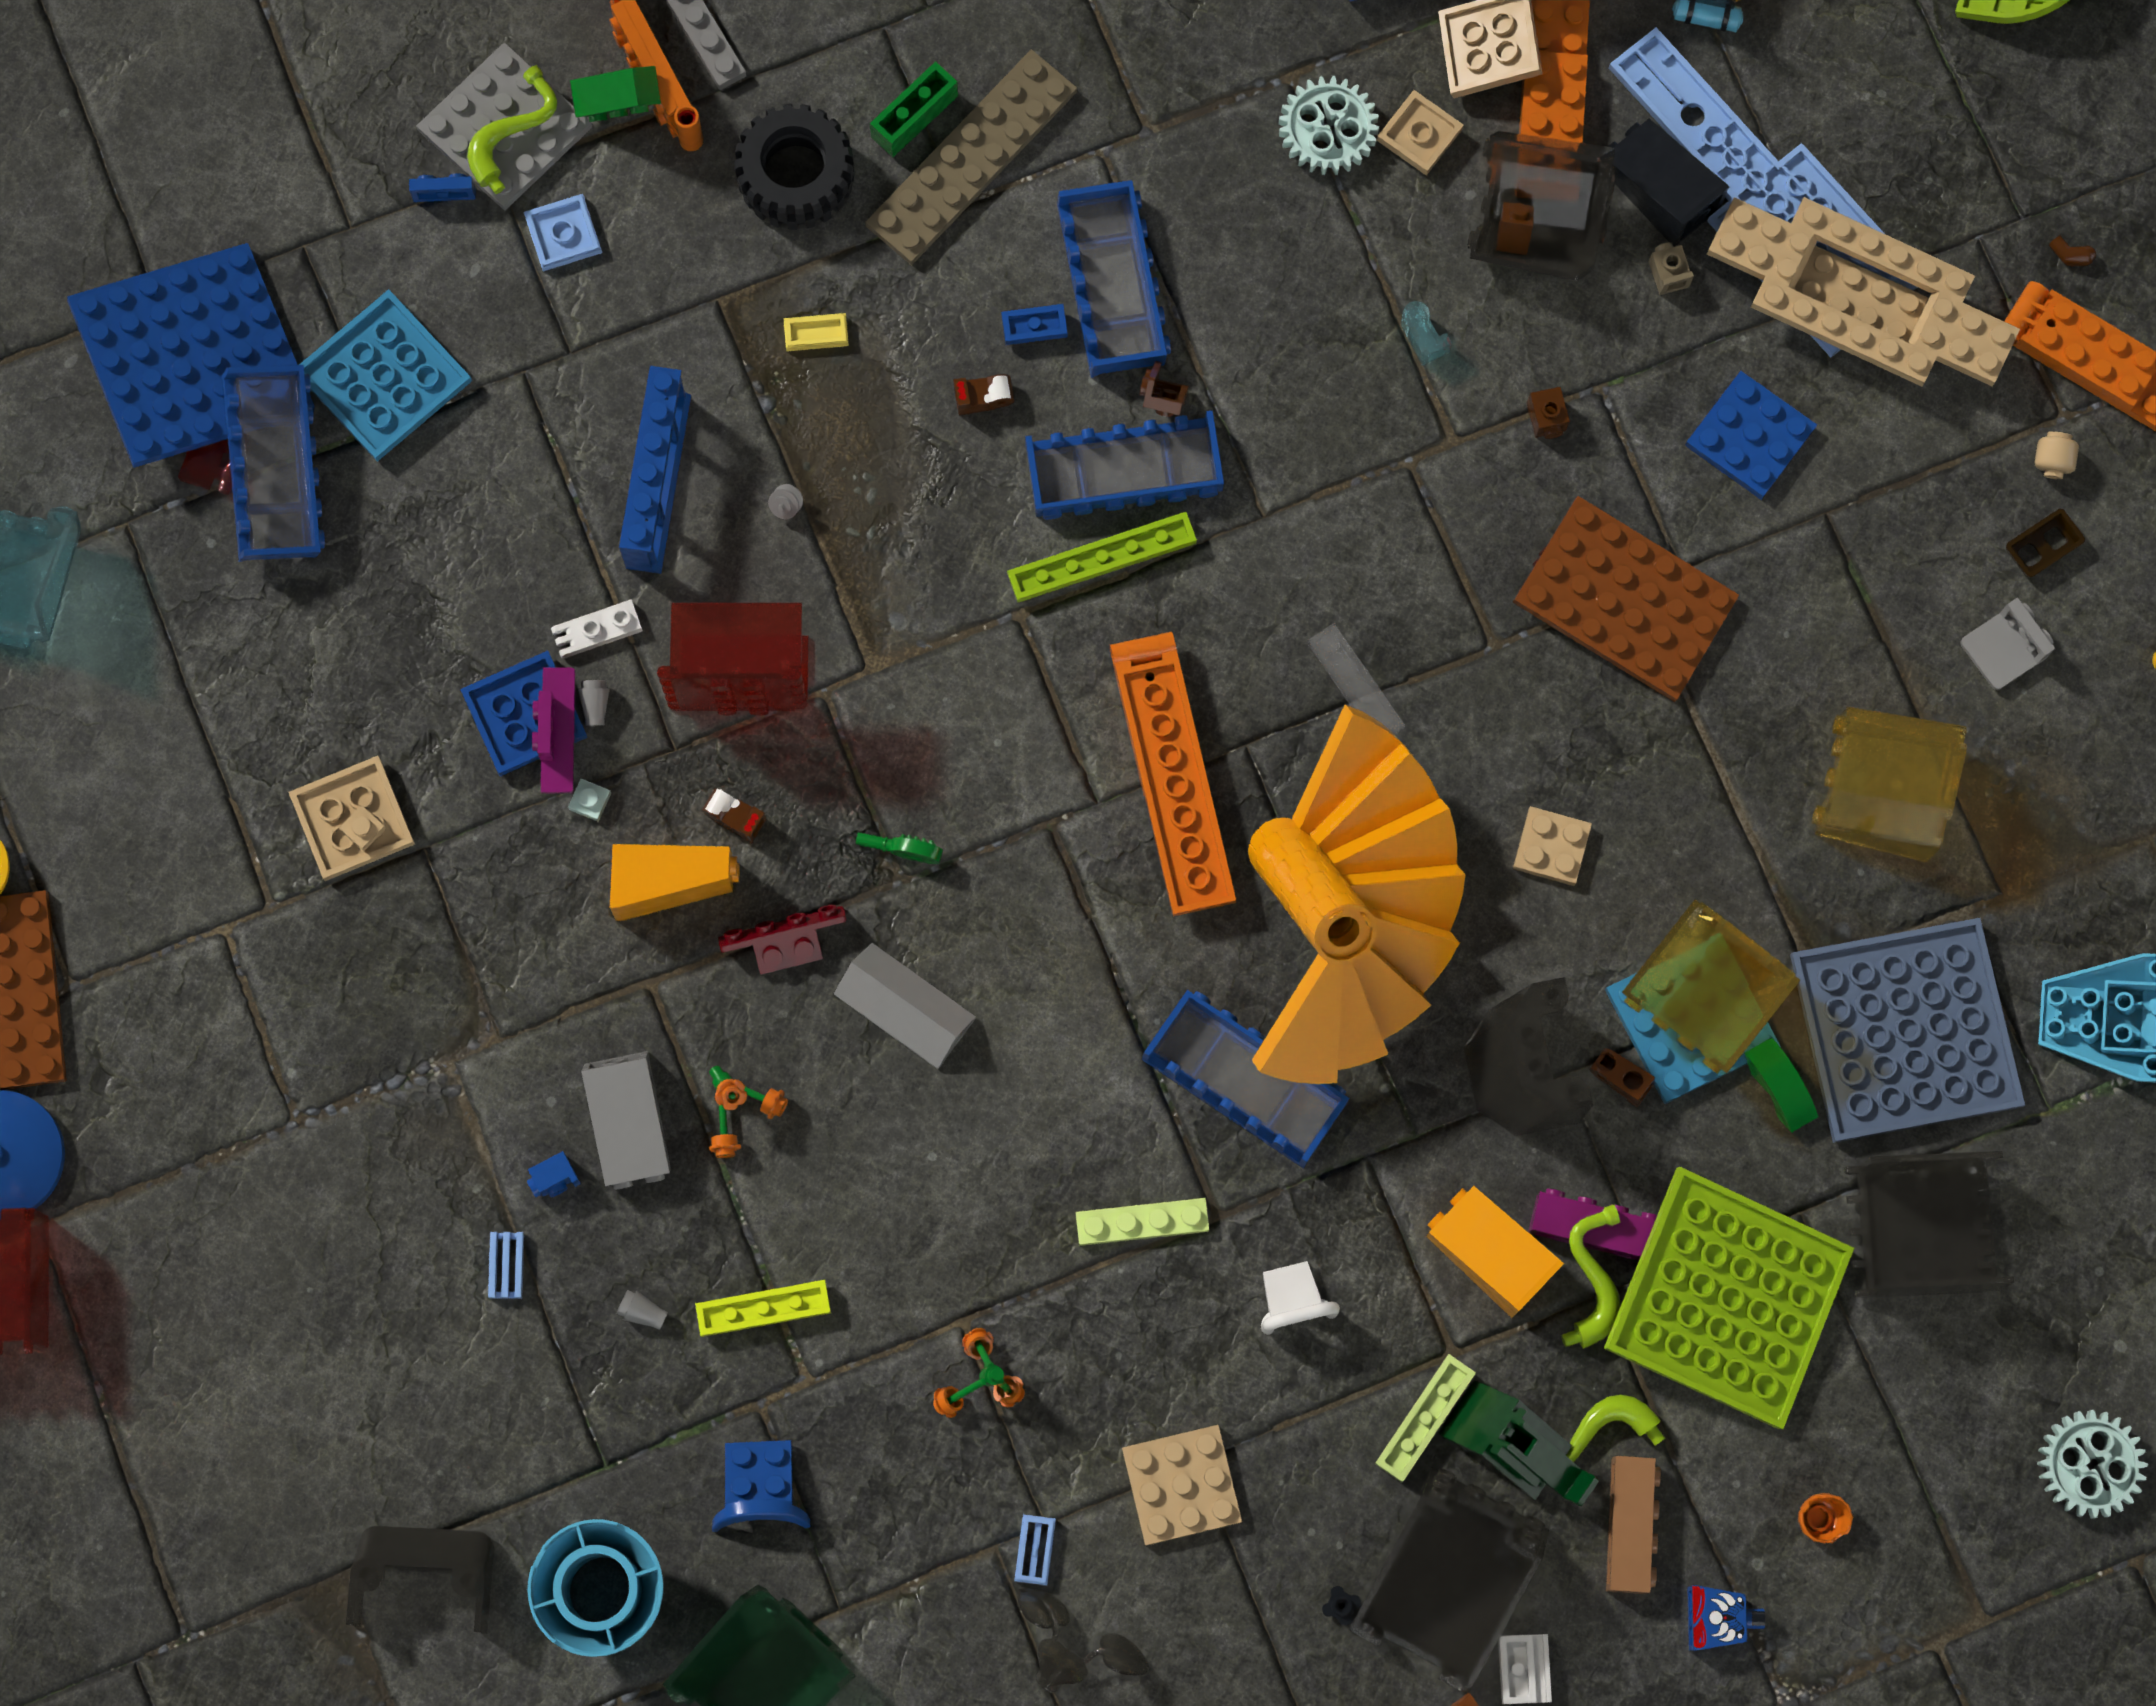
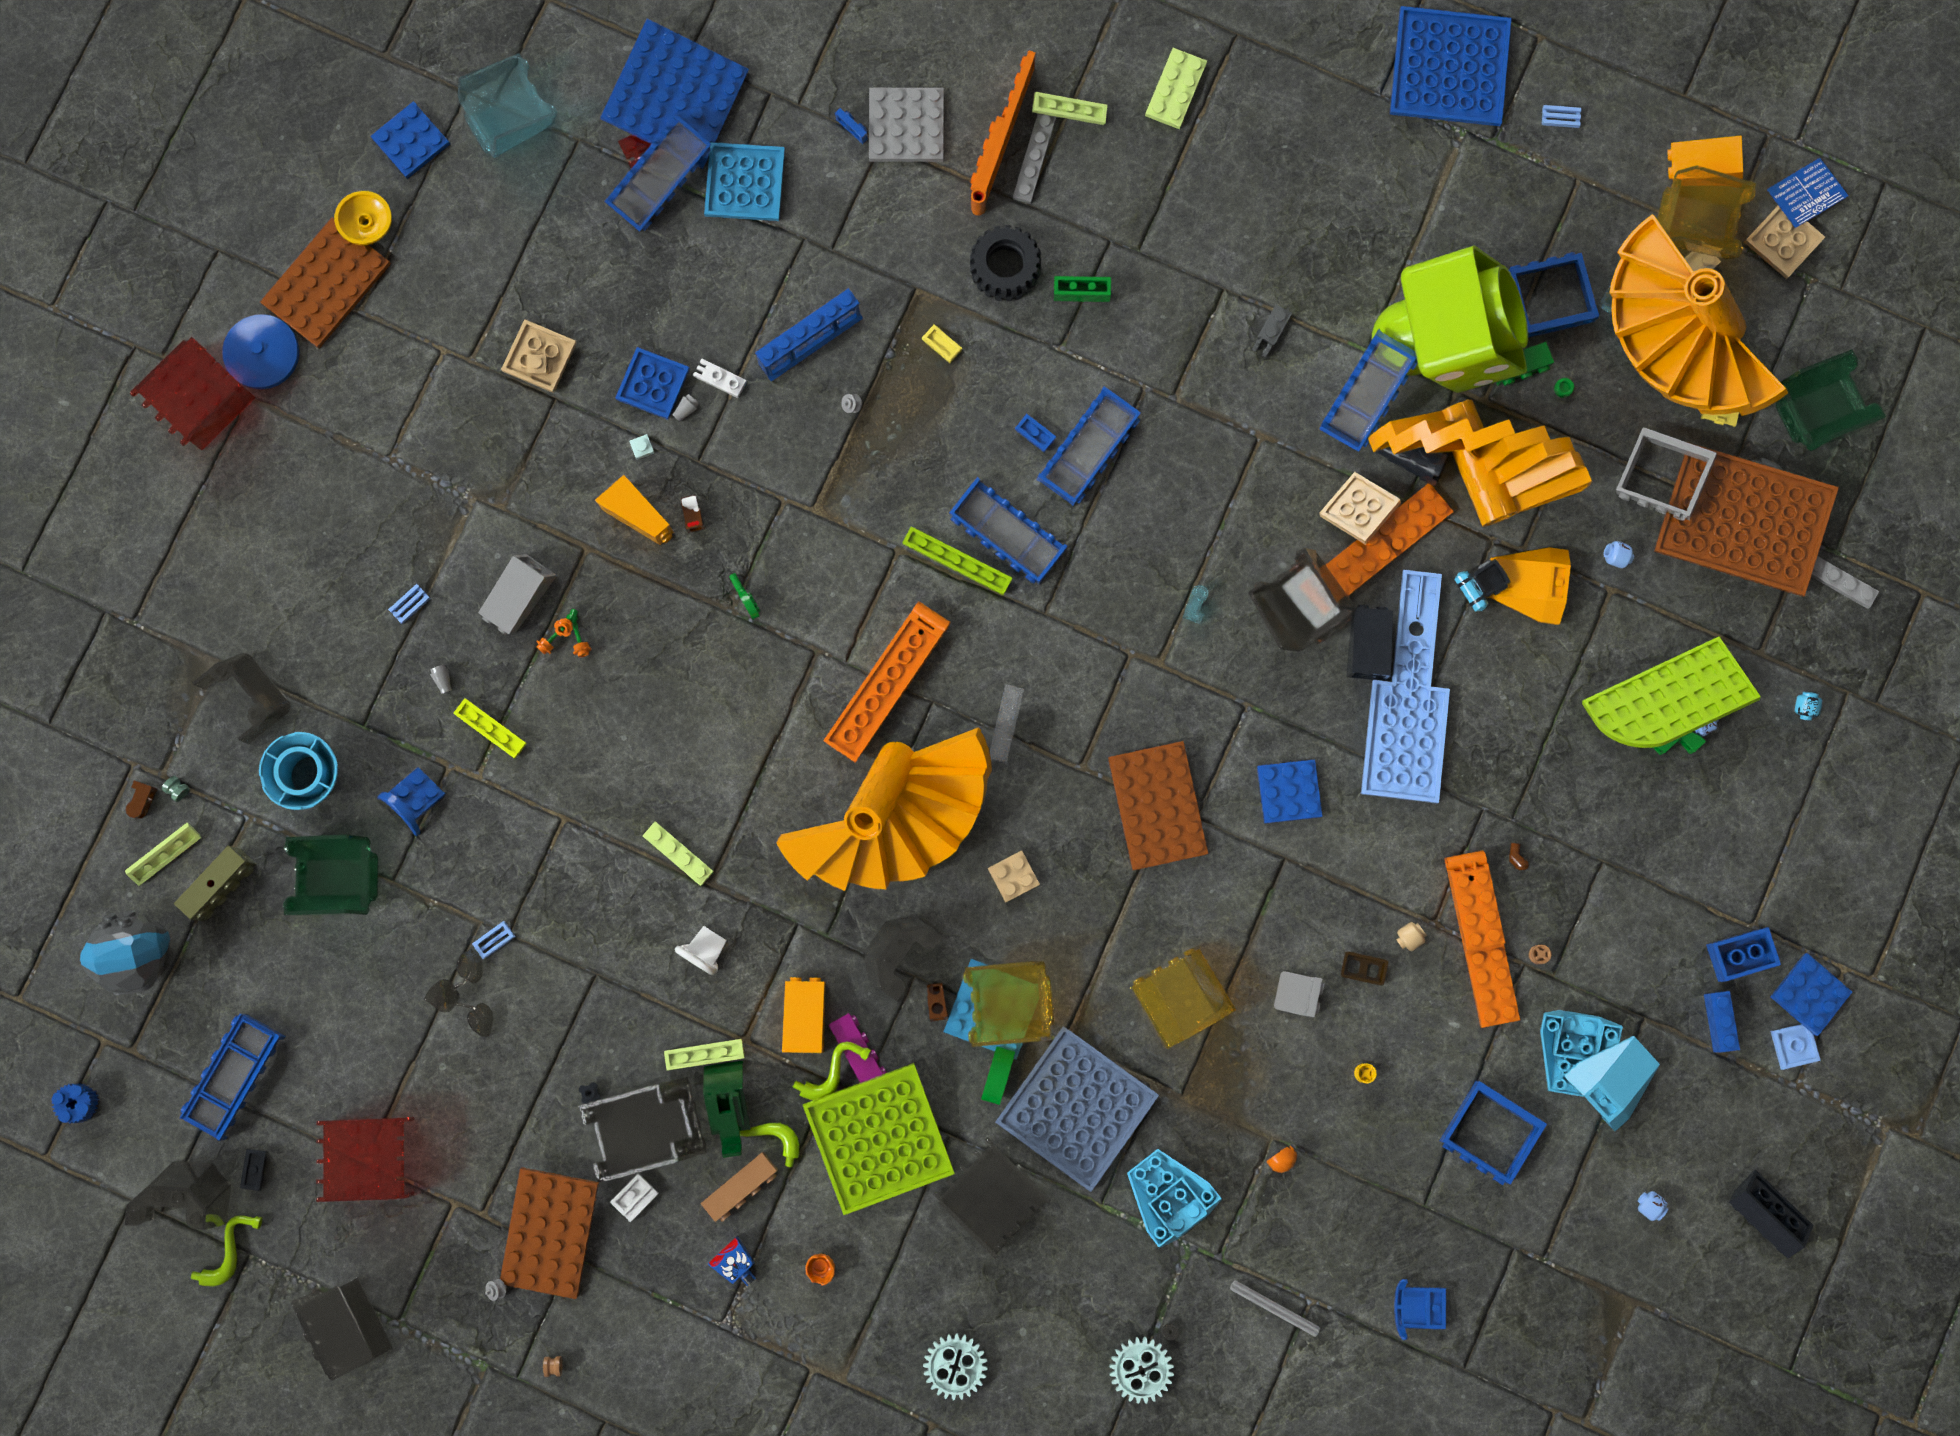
camera: 50 degrees right, 5 degrees up
(483, 142) = (888, 122): lime animal -> none
(552, 1176) = (464, 587): blue brick -> none
(556, 730) = (655, 402): magenta bracket -> none
(562, 232) = (882, 194): light blue tile -> none
(615, 93) = (961, 156): green brick -> none
(736, 658) = (755, 449): clear red windscreen -> none
(784, 942) = (657, 587): dark red bracket -> none
(904, 1005) = (678, 663): light grey slope -> none
(971, 157) = (1087, 334): dark tan plate -> none
(983, 393) = (981, 440): reddish brown leg -> none
(1007, 1388) = (550, 863): orange plant -> none
(1162, 395) = (1054, 517): reddish brown bracket -> none
(1181, 1485) = (579, 976): tan plate -> none
(1214, 1062) = (777, 813): clear window -> none
(1354, 116) = (1237, 467): light aqua gear -> none
(1420, 132) = (1289, 516): tan plate -> none
(1515, 228) = (1281, 599): reddish brown brick -> none
(1548, 413) = (1211, 693): reddish brown brick -> none
(1666, 277) = (1328, 689): dark tan brick -> none
(1856, 306) = (1393, 782): tan piece -> none

